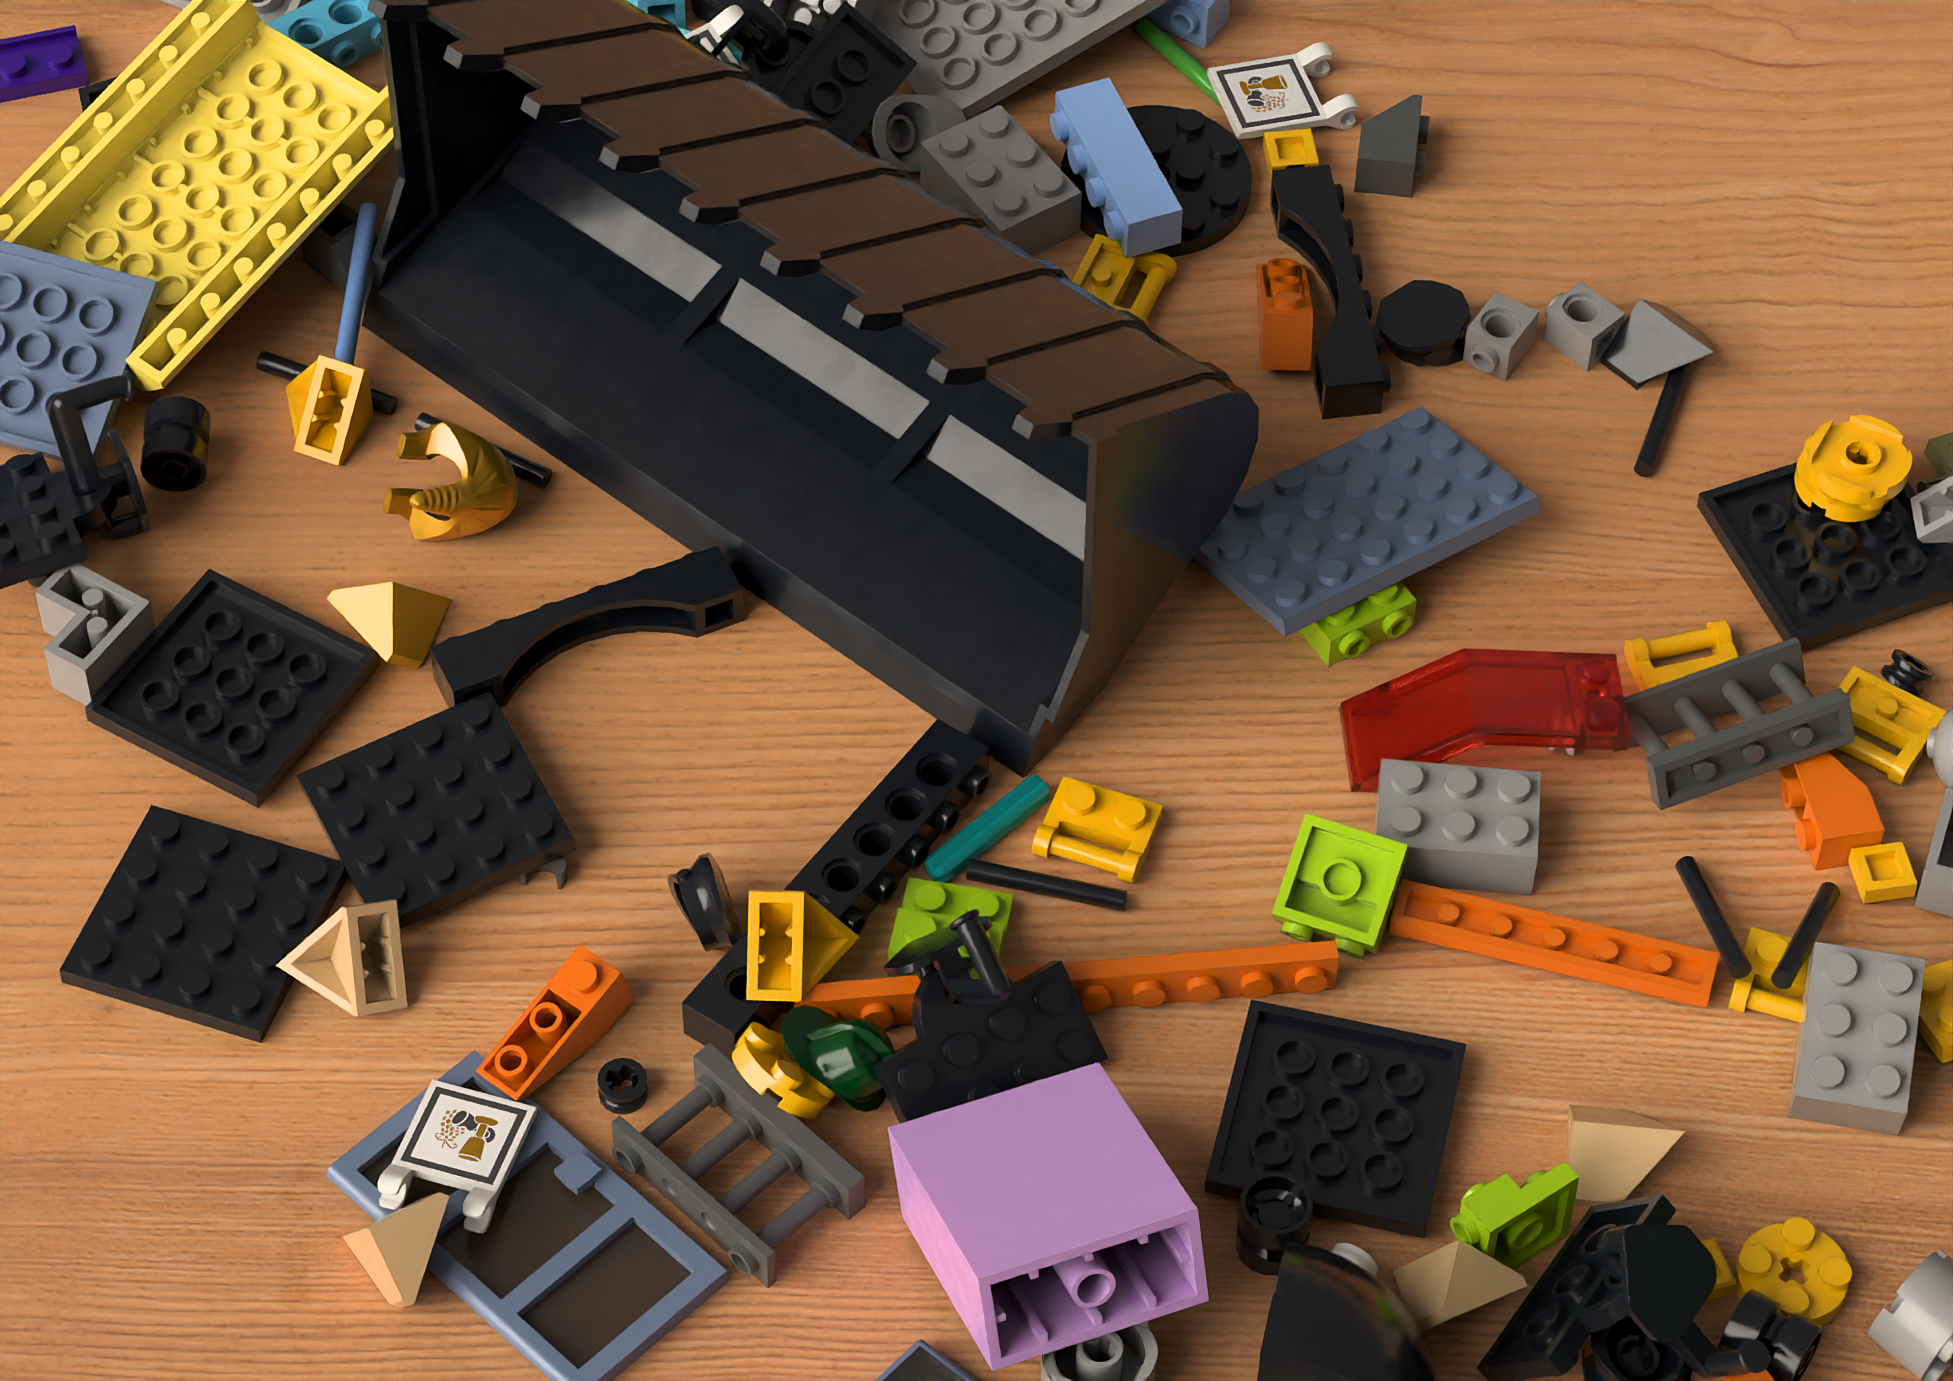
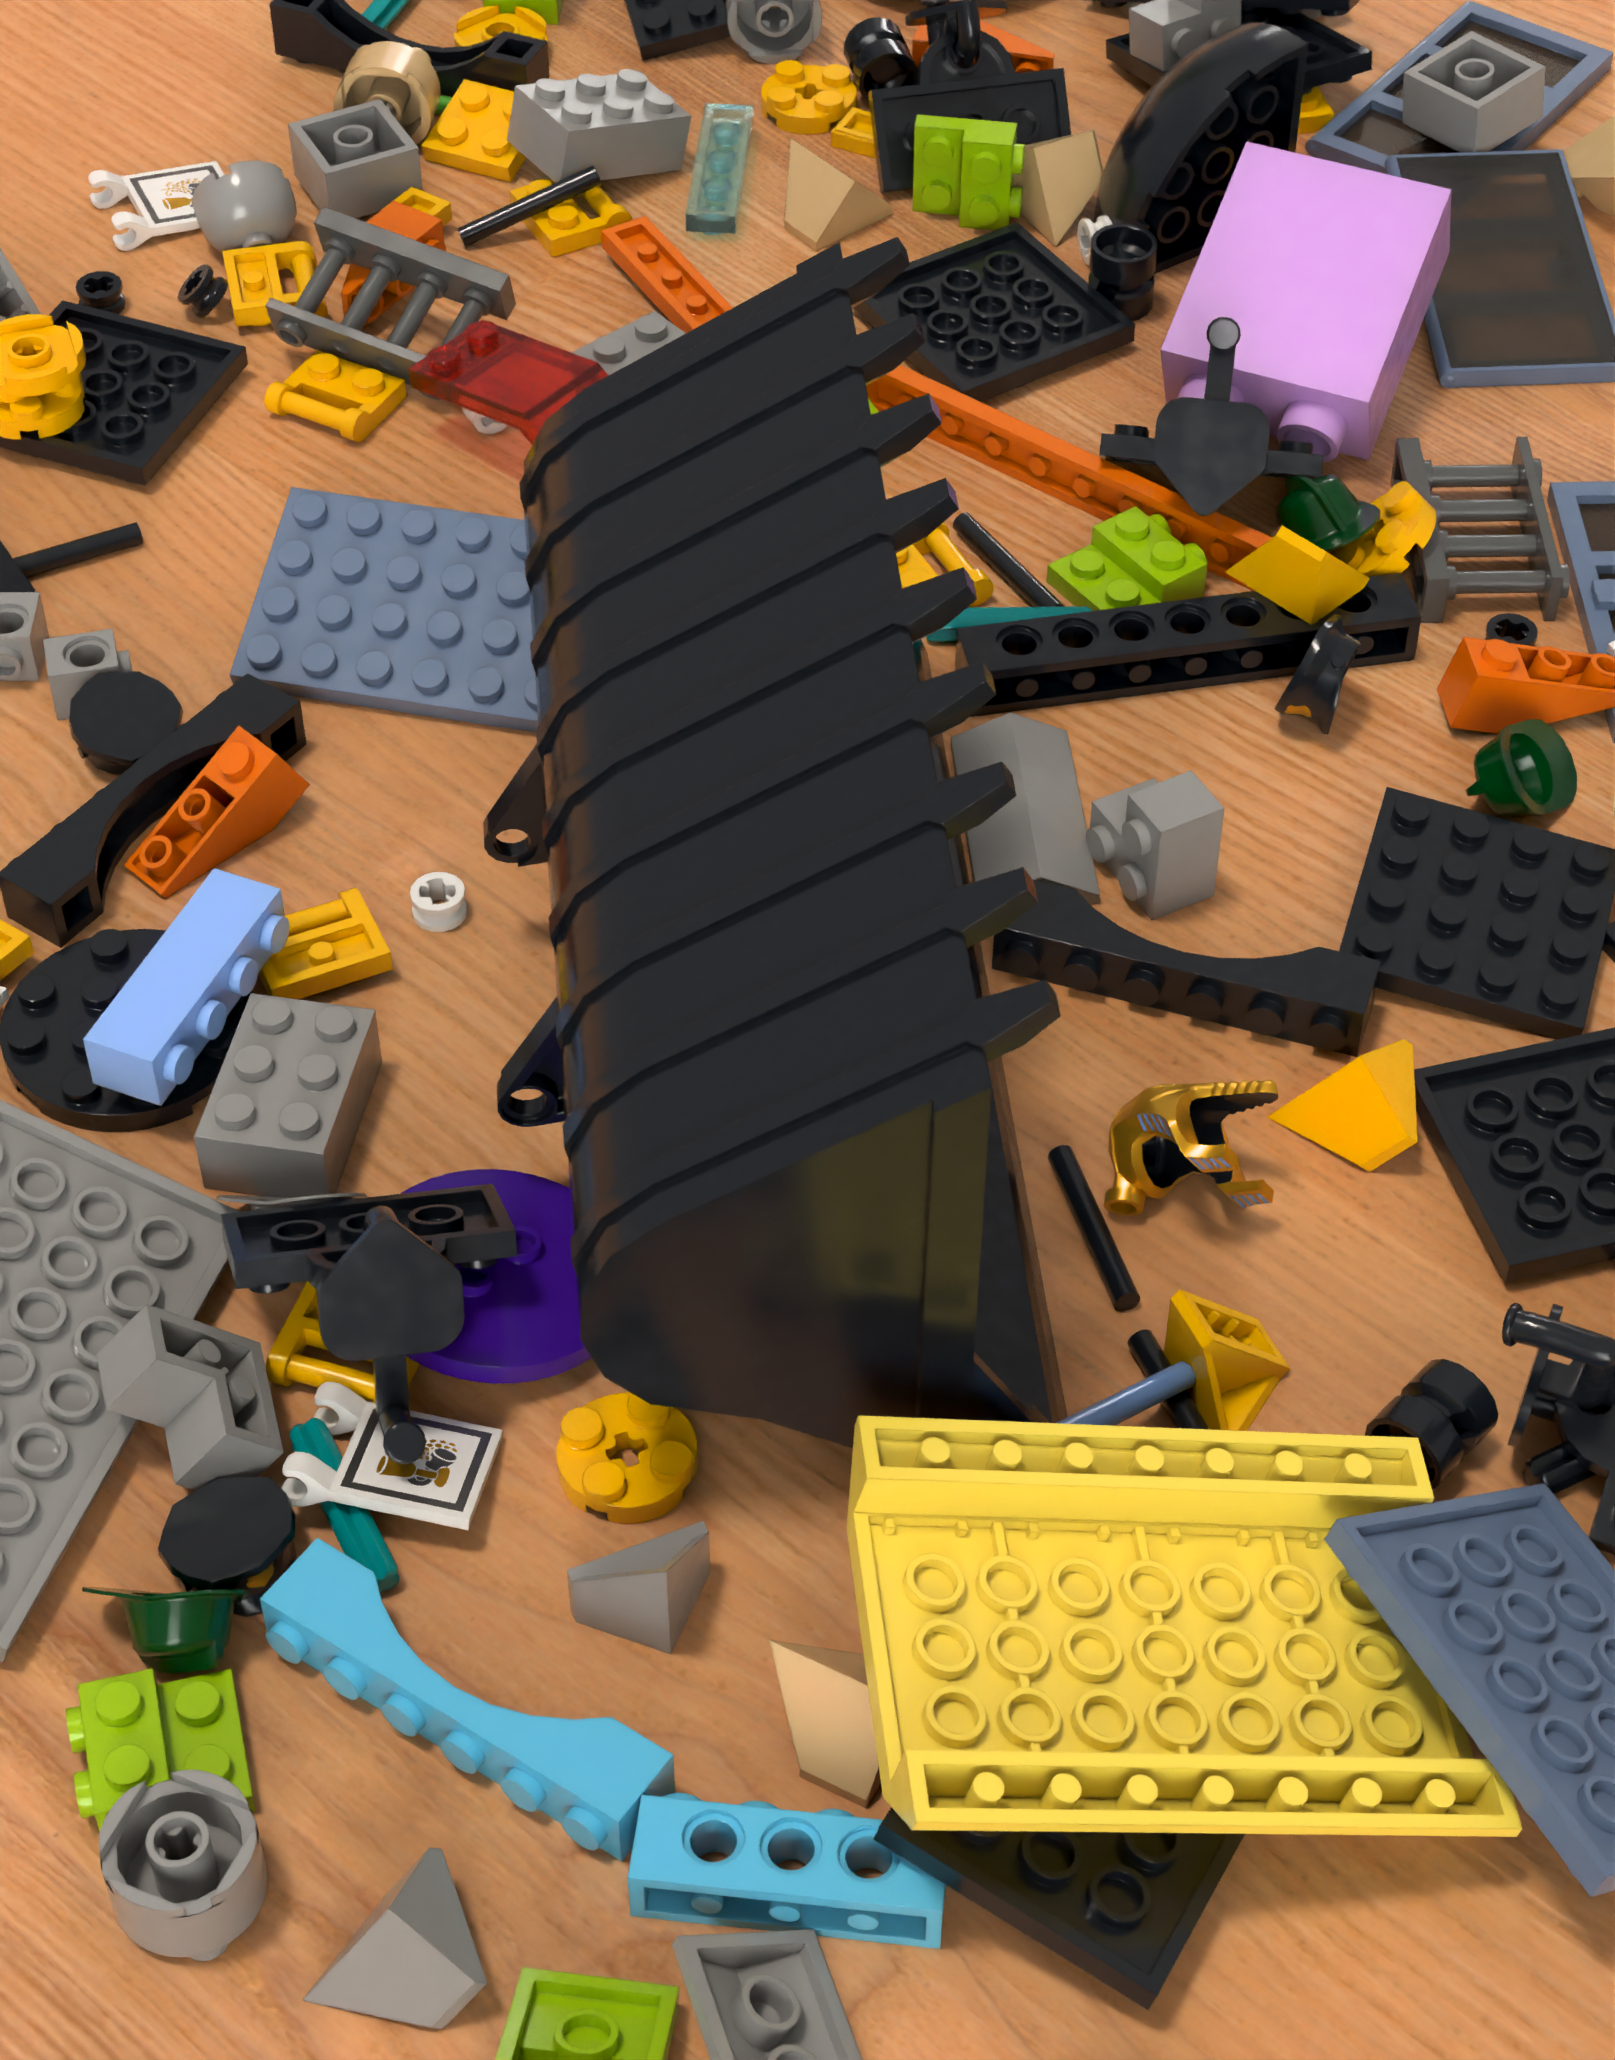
camera: 135 degrees left, 5 degrees down
(496, 940) = (1525, 771): none -> dark green piece
(682, 696) = (1159, 841): none -> light grey brick
(810, 689) = (1045, 821): none -> light grey slope
(1713, 917) = (569, 254): black bar -> none
(1740, 1115) = (719, 169): none -> clear light blue plate

